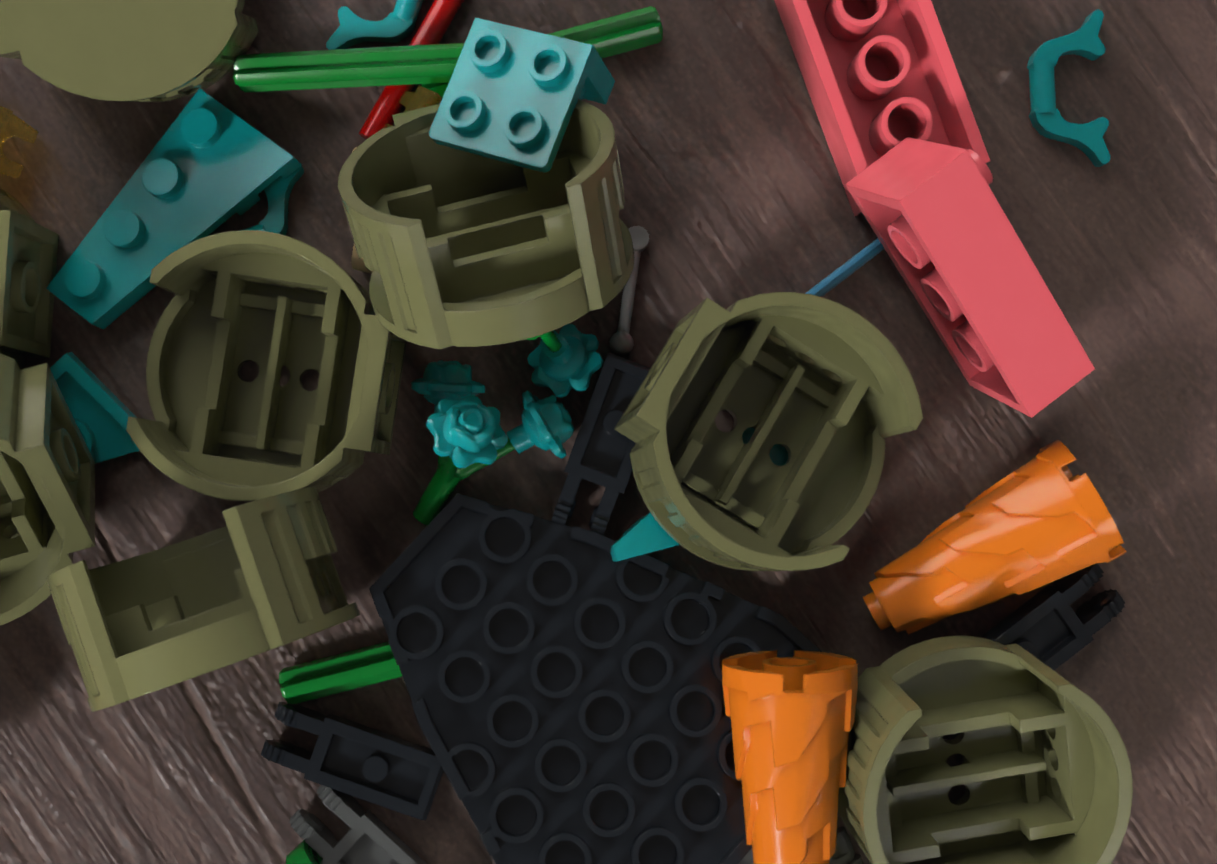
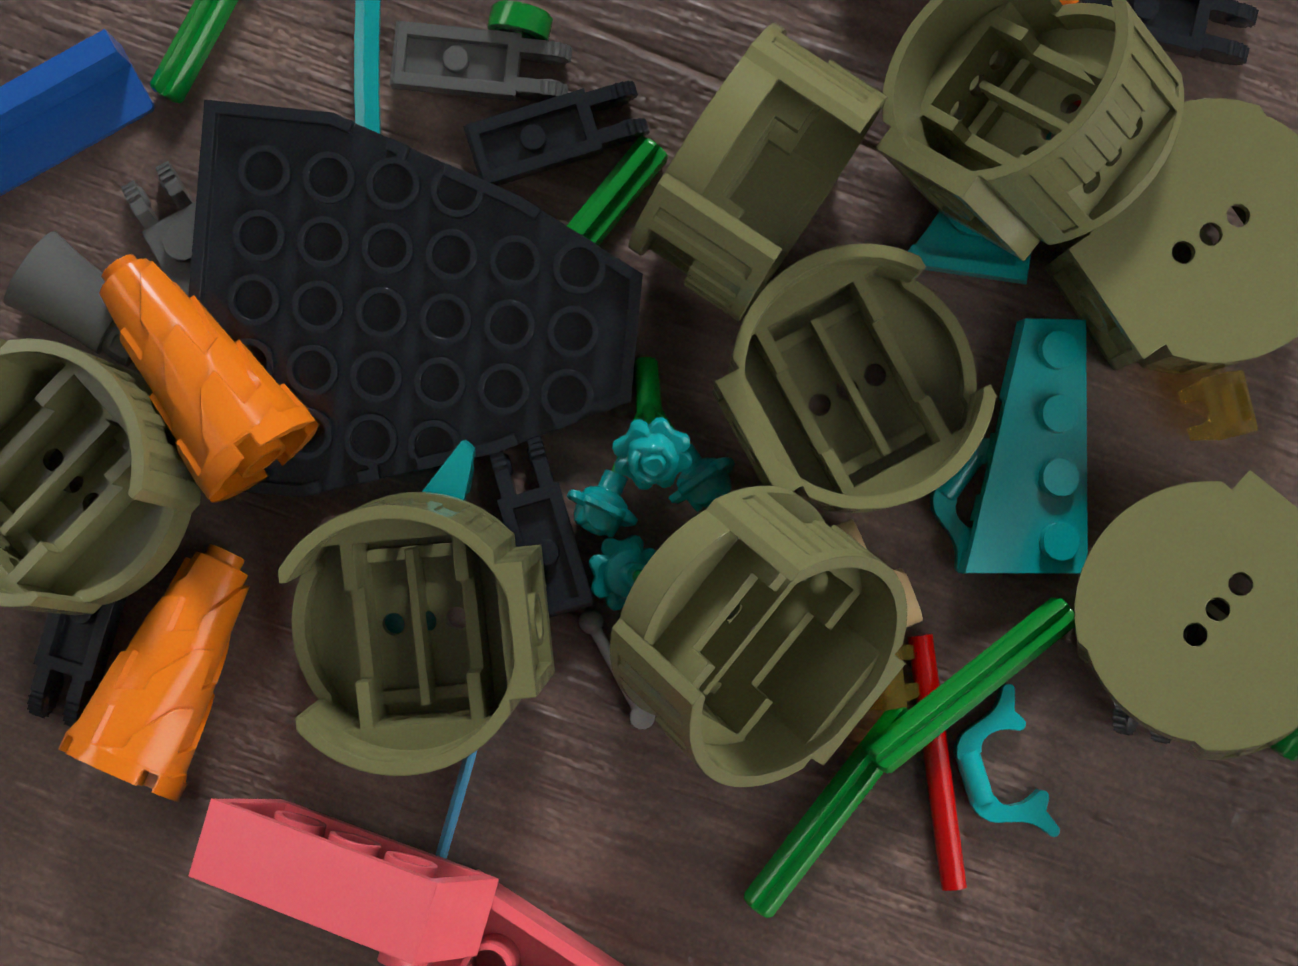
camera: 150 degrees right, 0 degrees up
(517, 94) = (814, 752): teal bracket -> none

